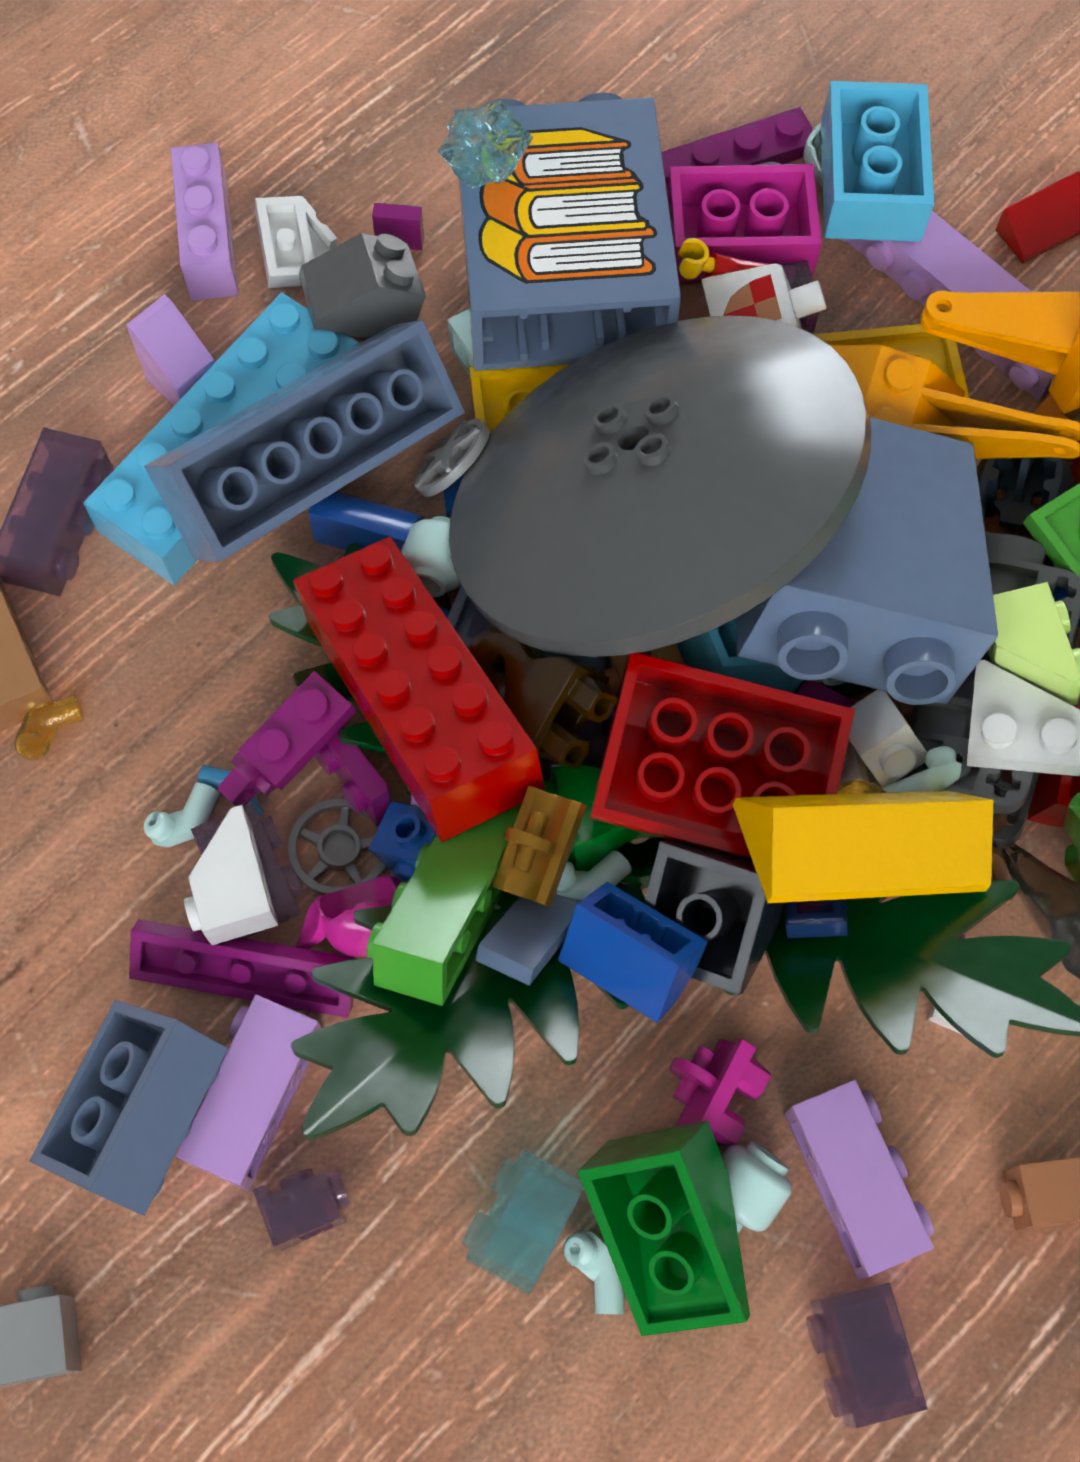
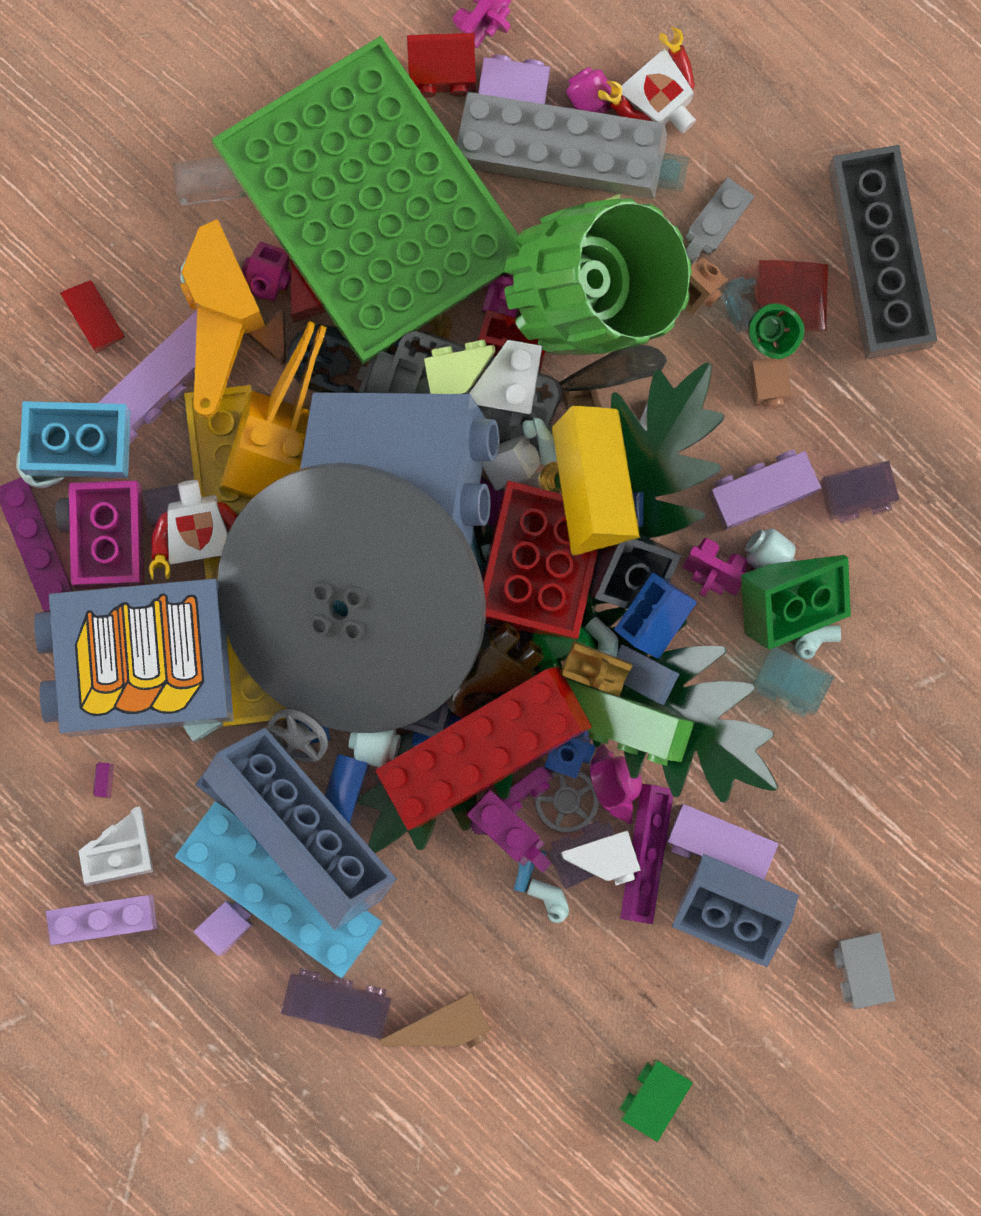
camera: 90 degrees left, 15 degrees up
(42, 725) = (489, 997): clear yellow arm -> none
(302, 1207) = (787, 809): clear purple brick -> none
(363, 286) = (170, 799): dark grey slope -> none
(484, 144) = (109, 708): clear light blue brick -> none

